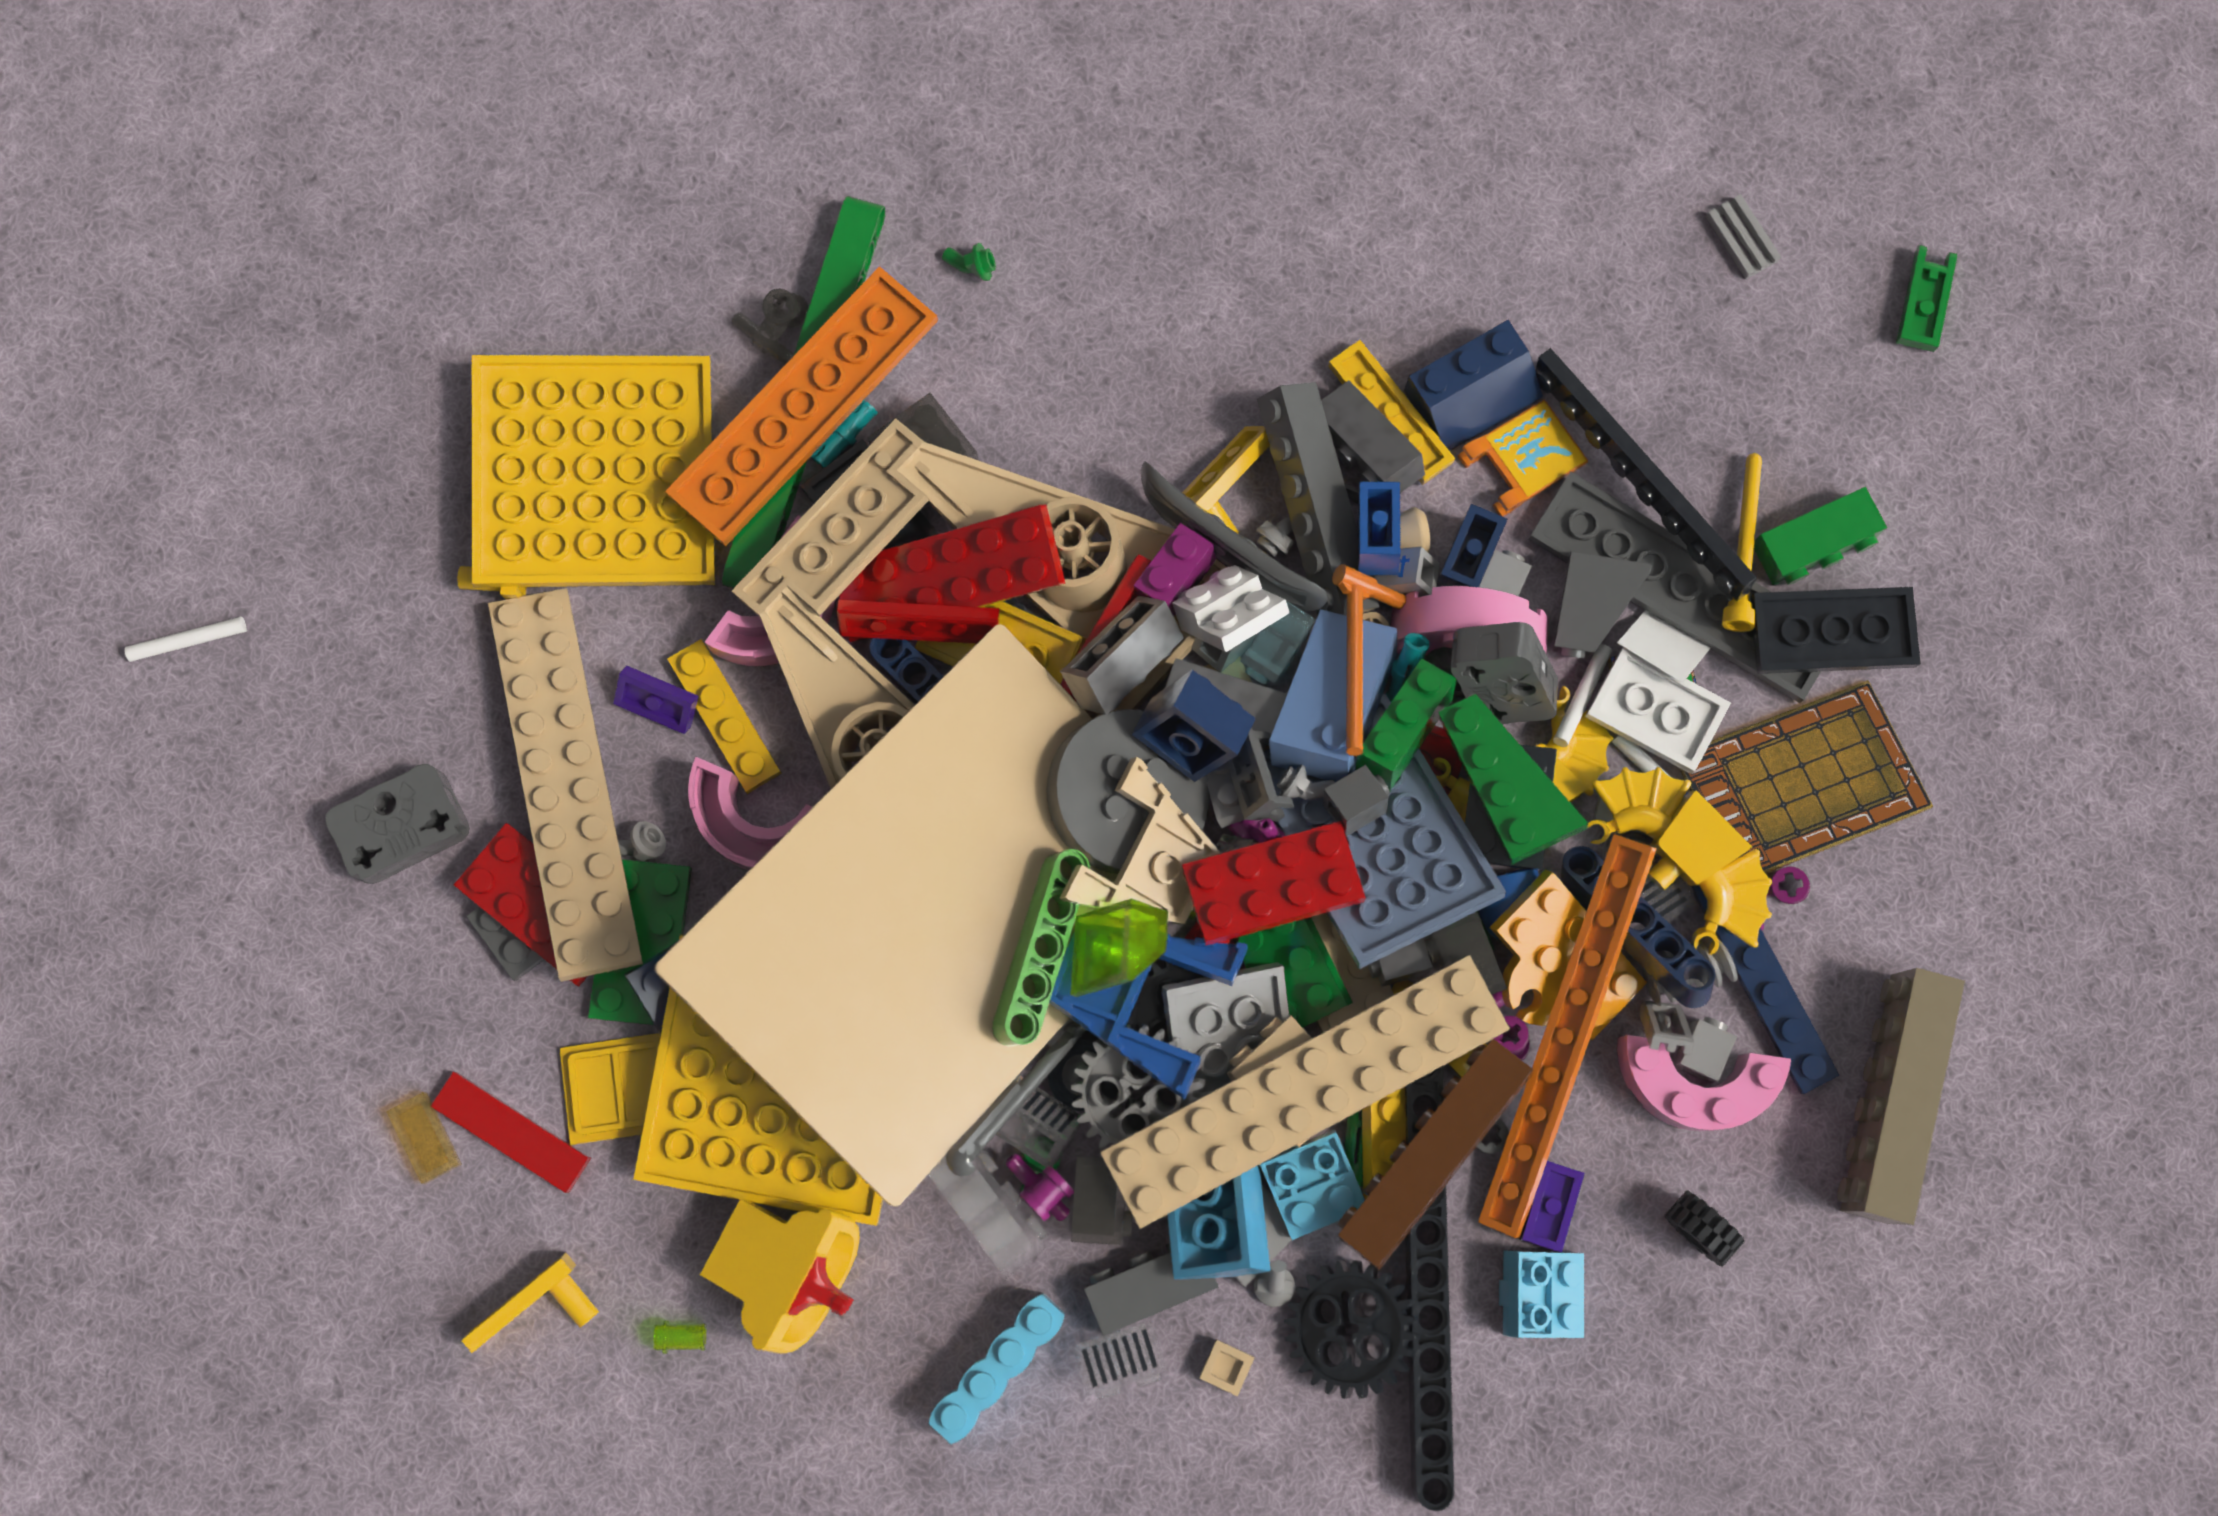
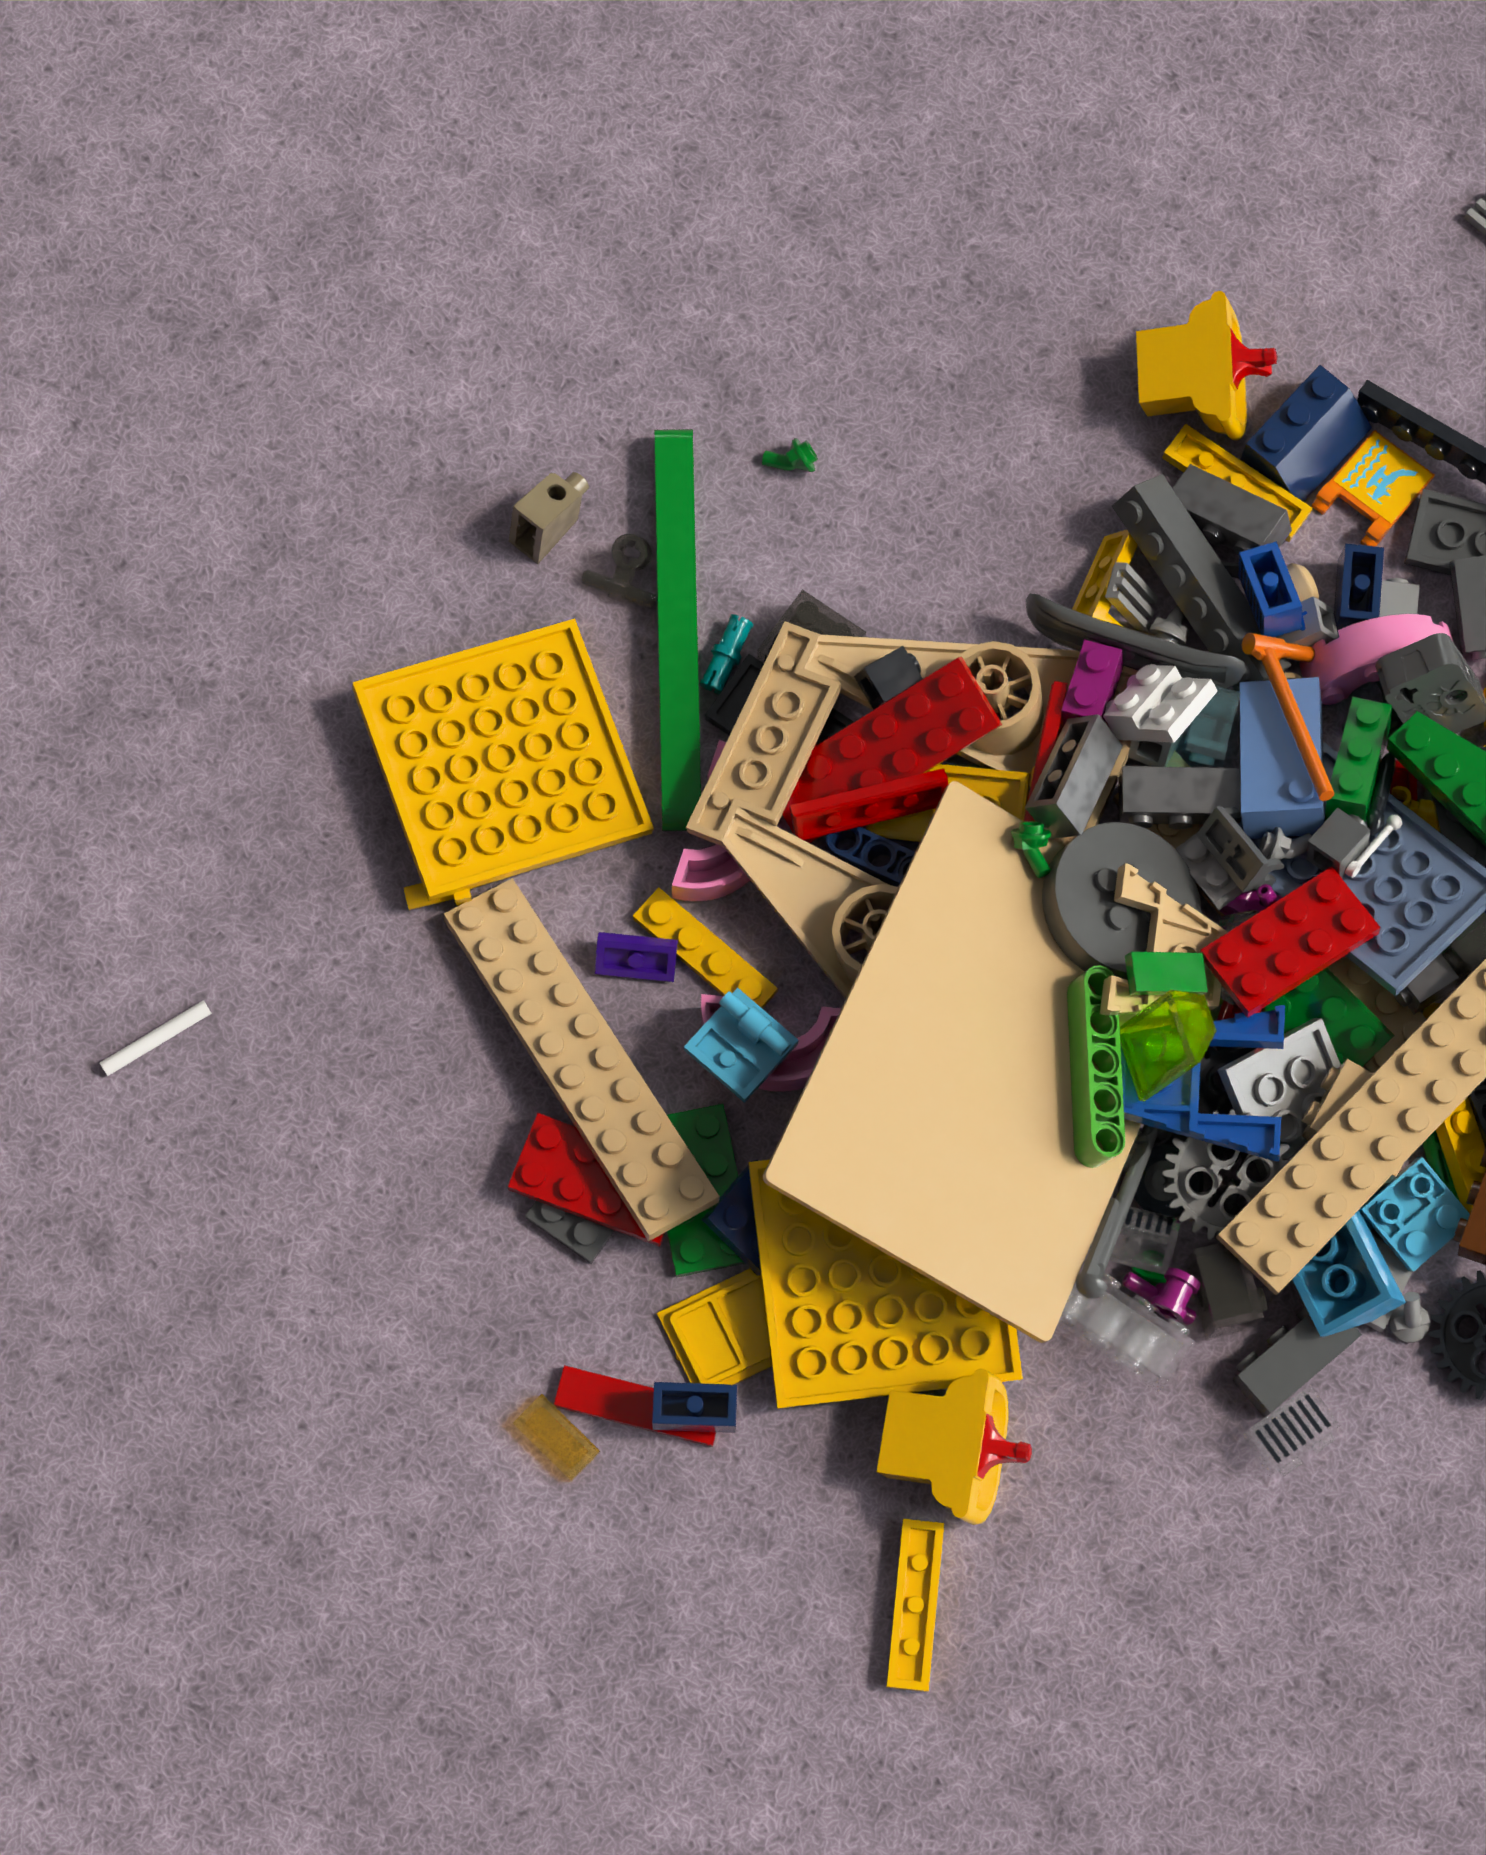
camera: 20 degrees left, 5 degrees down
(406, 833) = (436, 1159): dark grey axle -> none
(552, 1155) = (694, 1407): none -> dark blue brick
(552, 1279) = (728, 1528): yellow piece -> none
(645, 843) = (674, 1092): light grey plate -> none
(679, 1337) = (869, 1545): clear neon green pin -> none
(702, 1410) = (915, 1605): none -> yellow plate
(711, 818) = (741, 1044): none -> medium azure plate
(716, 246) = (546, 514): none -> dark tan torso
(802, 406) = (685, 638): orange plate -> none
(976, 502) = (889, 676): none -> black brick
(989, 1376) = (1178, 1485): medium azure brick -> none
(1057, 702) = (1030, 838): none -> green plate
(1138, 878) = (1160, 971): none -> green tile
(1194, 726) = (1167, 820): dark blue brick -> none
(1226, 1367) = (1392, 1410): tan plate -> none
(1258, 504) = (1133, 590): none -> light grey tile
(1390, 288) = (1200, 367): none -> yellow piece
(1404, 783) = (1375, 817): none -> black piece
(1413, 650) = (1337, 711): teal pin -> none
(1419, 795) = (1393, 823): none -> white hinge

